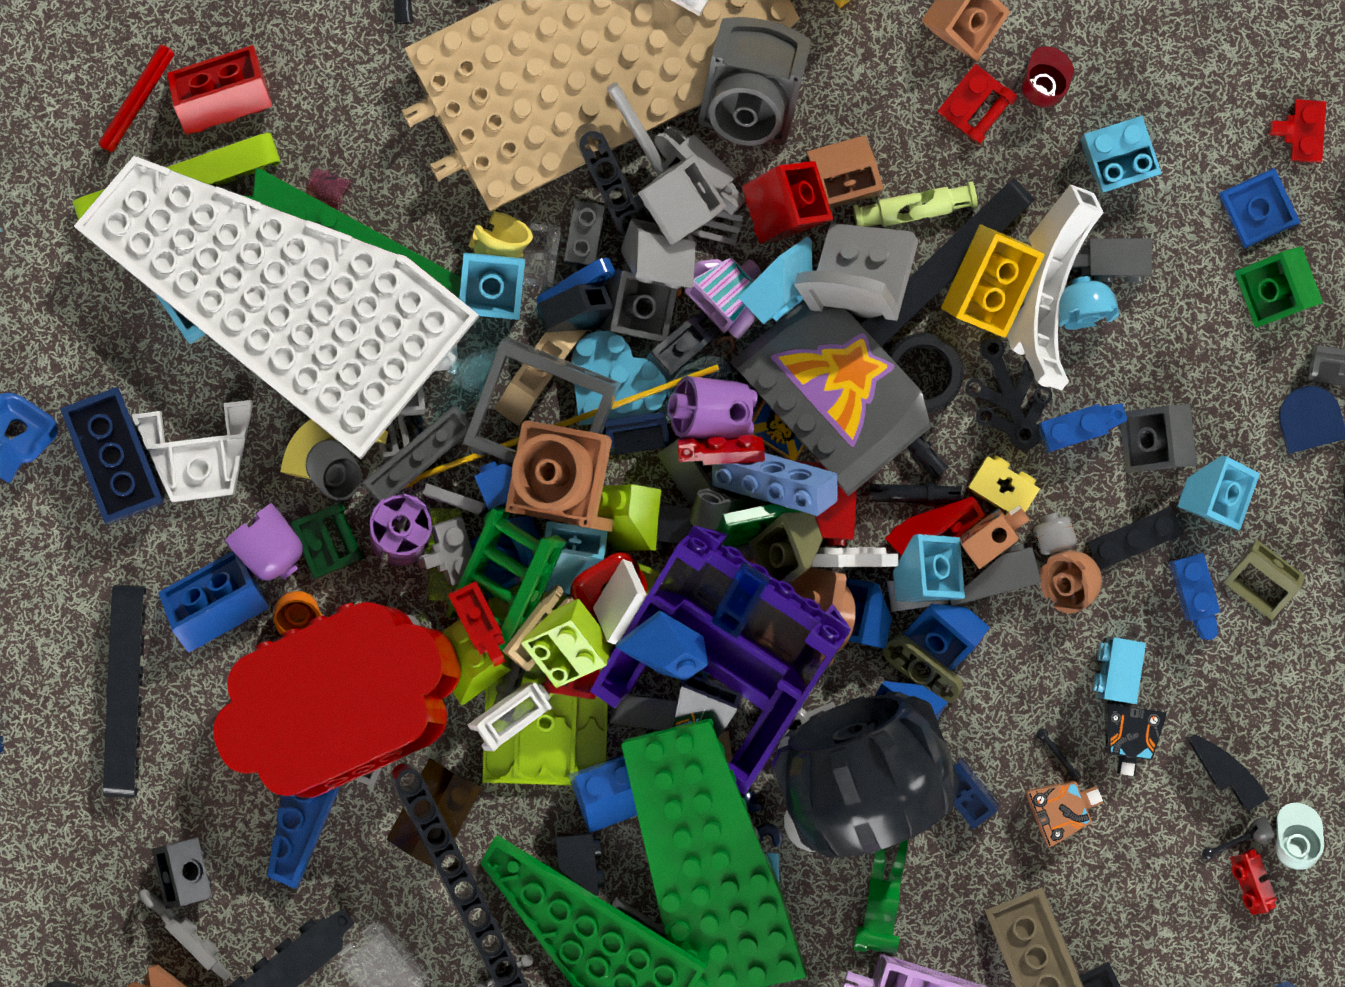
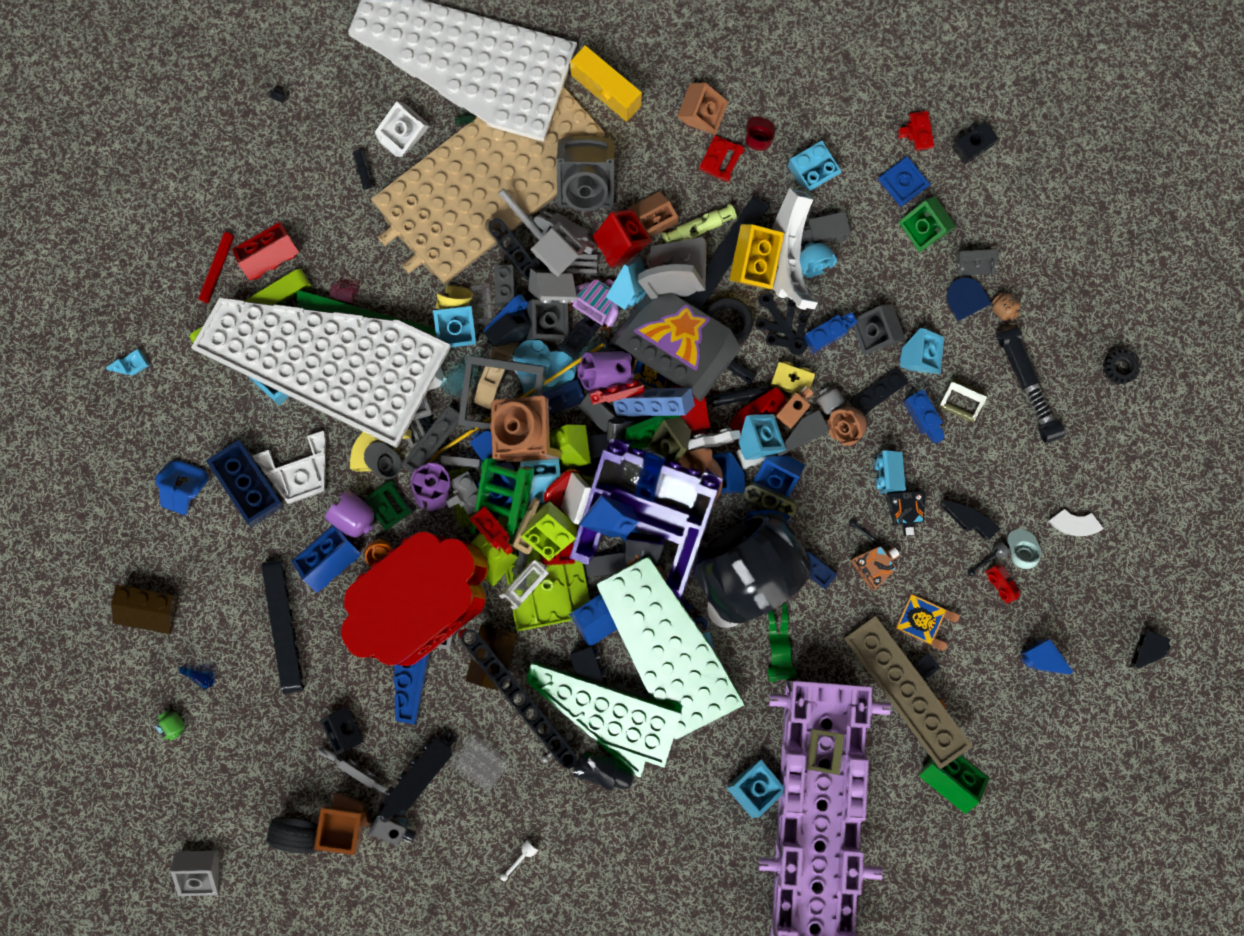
camera: 15 degrees left, 5 degrees down
(1114, 910) = (923, 619): none -> flag

